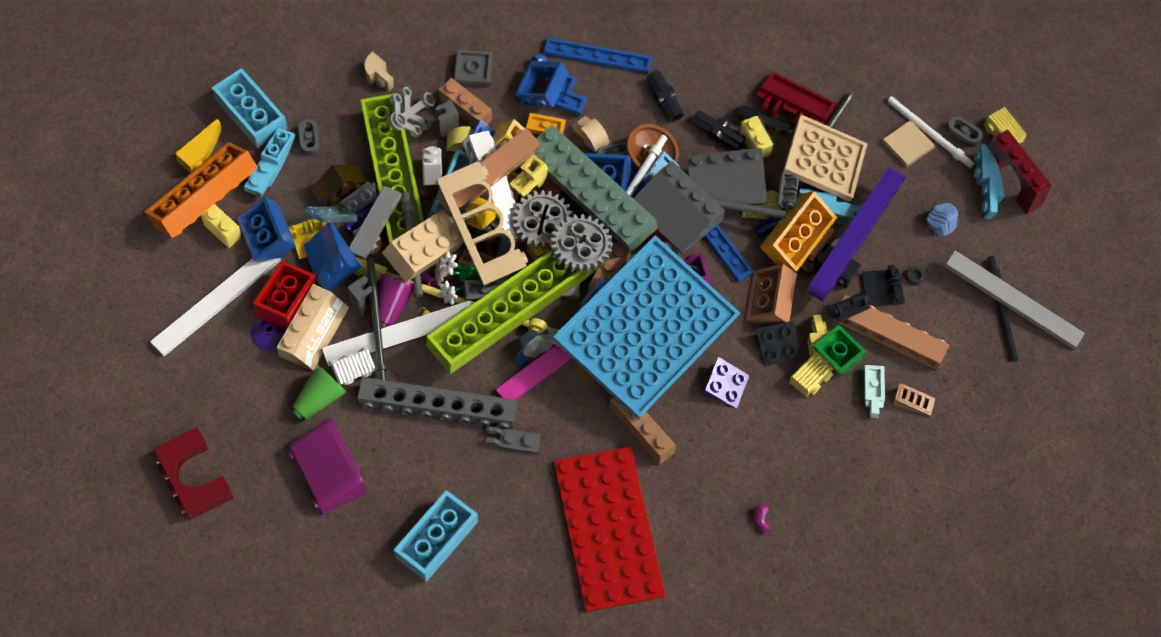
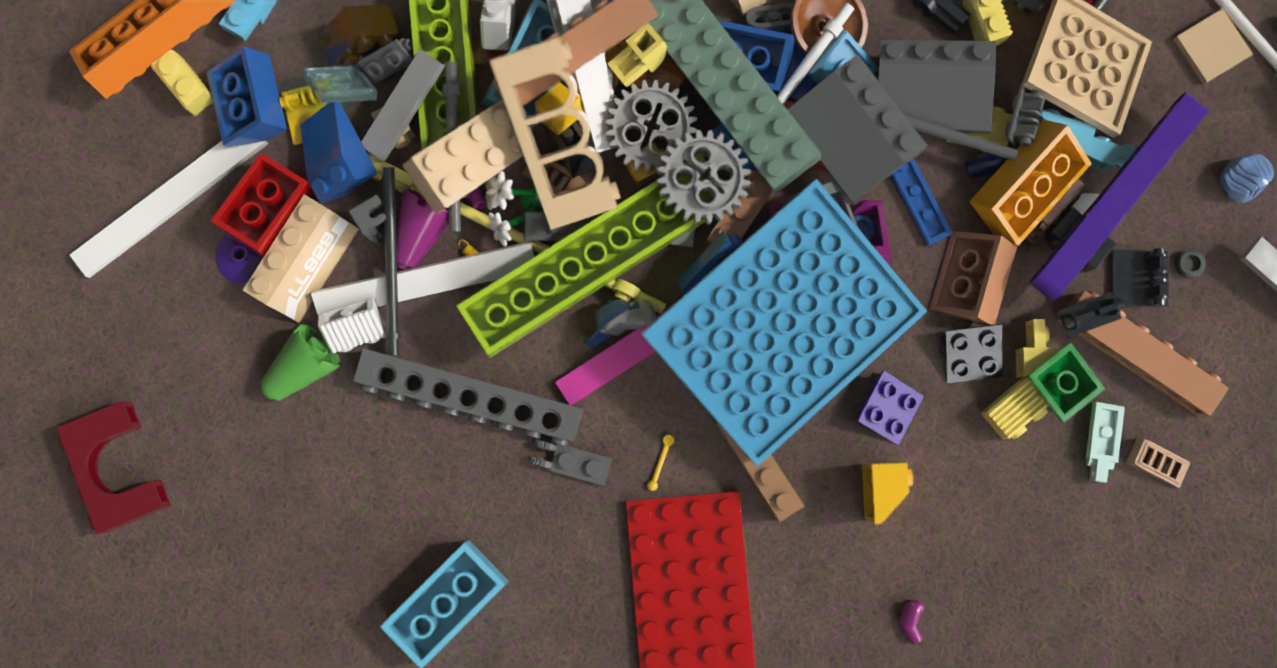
camera: 10 degrees right, 20 degrees up
(327, 467) = (300, 480): magenta windscreen -> none
(361, 216) = (384, 91): dark purple pin -> none
(578, 420) = (652, 485): none -> yellow hinge
(728, 427) = (884, 488): none -> yellow slope

